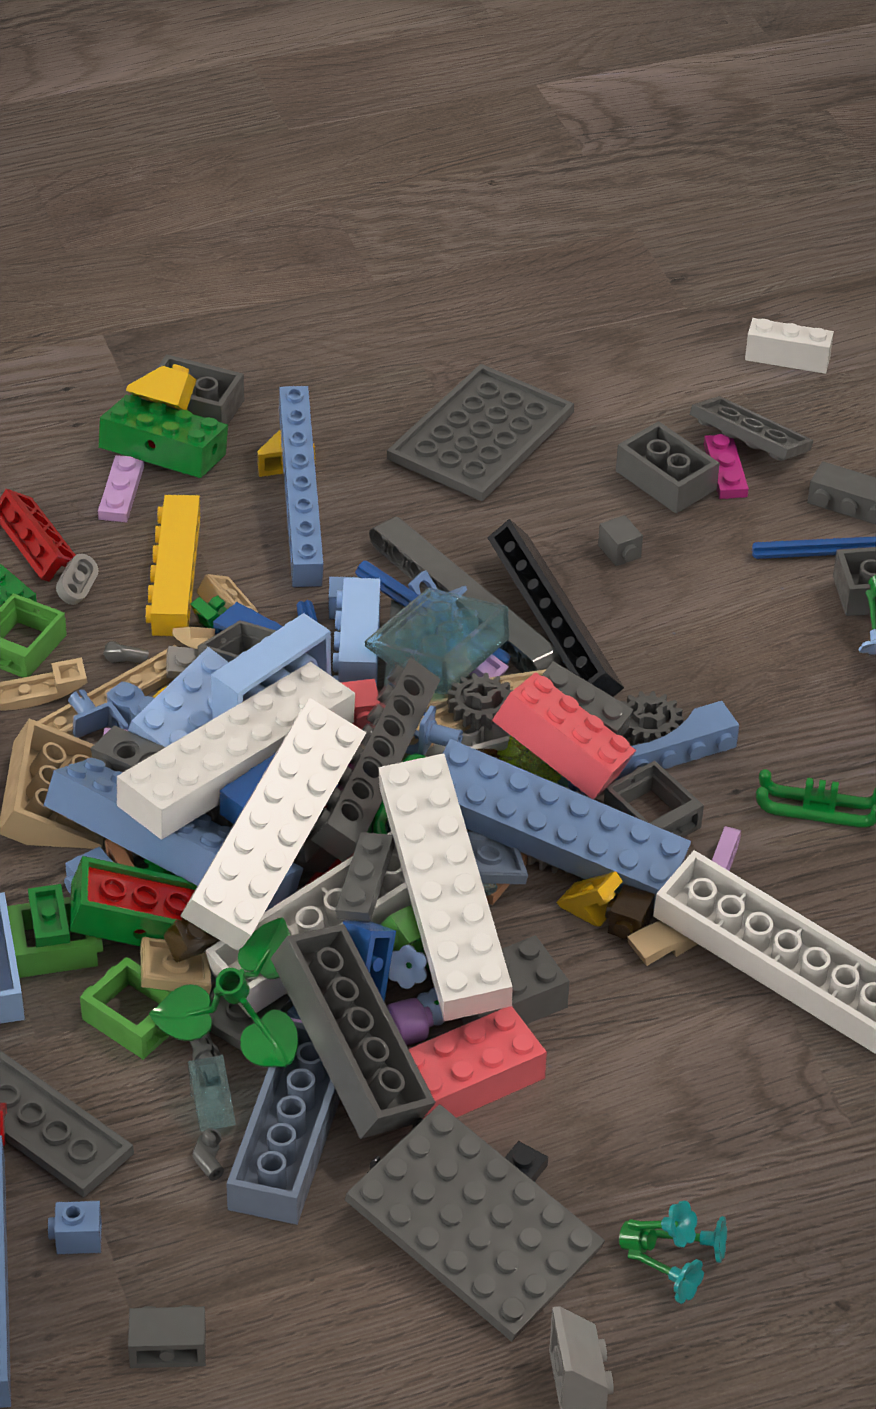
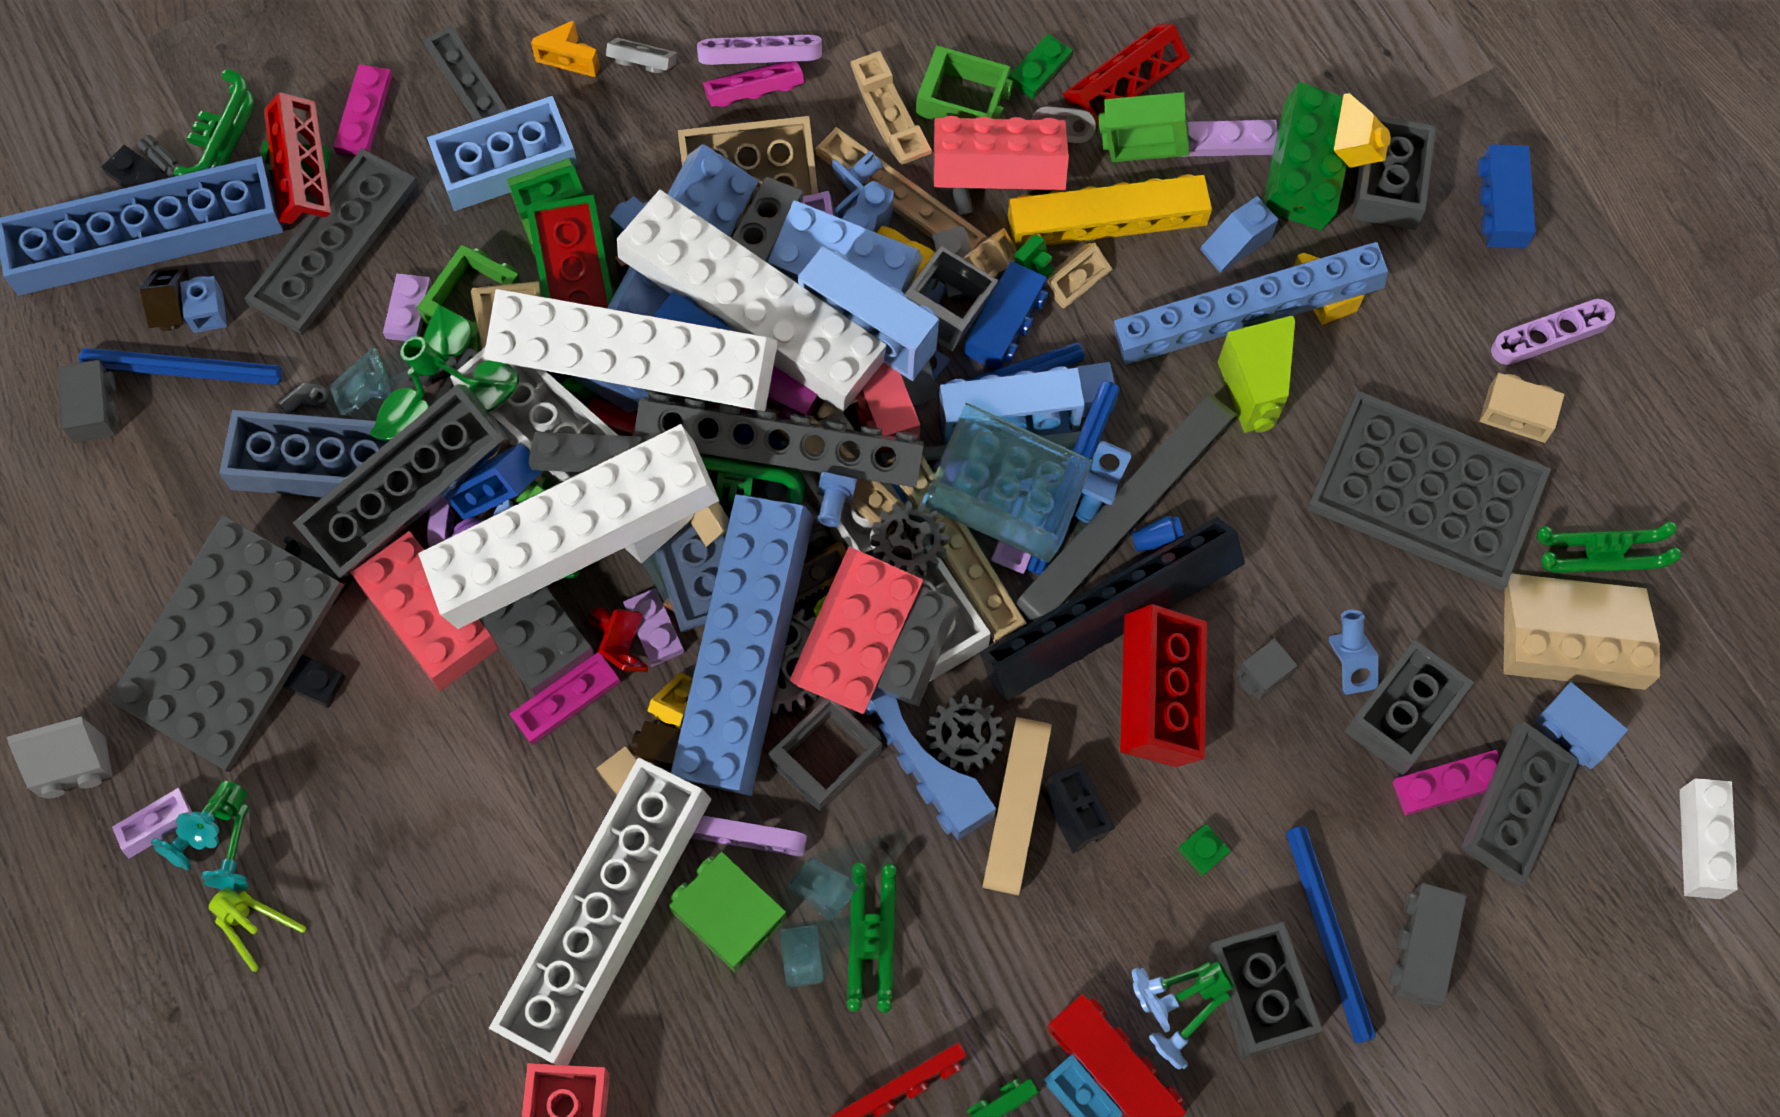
camera: 80 degrees right, 25 degrees up
(59, 1257) = (163, 298): none -> dark brown slope
(102, 612) = (1000, 153): none -> coral brick
(109, 516) = (1145, 127): none -> bright green window
(126, 1065) = (403, 316): none -> lavender plate
(142, 1259) = (184, 366): none -> blue axle
(222, 490) = (1240, 234): none -> medium blue slope
(232, 342) = (1506, 196): none -> blue brick
(359, 345) = (1551, 329): none -> lavender beam
(364, 491) = (1258, 371): none -> lime slope
(422, 369) = (1522, 407): none -> tan brick
(490, 576) = (1158, 534): none -> blue cone
(516, 928) = (618, 636): none -> red bracket
(517, 912) = (655, 628): none -> lavender plate
(550, 350) = (1607, 549): none -> green piece
(585, 993) = (565, 698): none -> dark pink plate
(609, 490) = (1355, 653): none -> medium blue bracket
(617, 377) = (1580, 632): none -> tan slope
(630, 589) = (1164, 686): none -> red brick
(653, 1298) = (151, 822): none -> lavender plate
(691, 387) = (1580, 726): none -> medium blue brick
(722, 663) = (1077, 807): none -> black hinge
(747, 1239) = (233, 909): none -> lime plant
(750, 706) = (1017, 806): none -> tan beam
(764, 603) = (1204, 850): none -> green plate
(773, 820) = (822, 888): none -> clear light blue slope
(795, 878) = (727, 911): none -> bright green brick
(832, 843) = (801, 956): none -> clear light blue slope

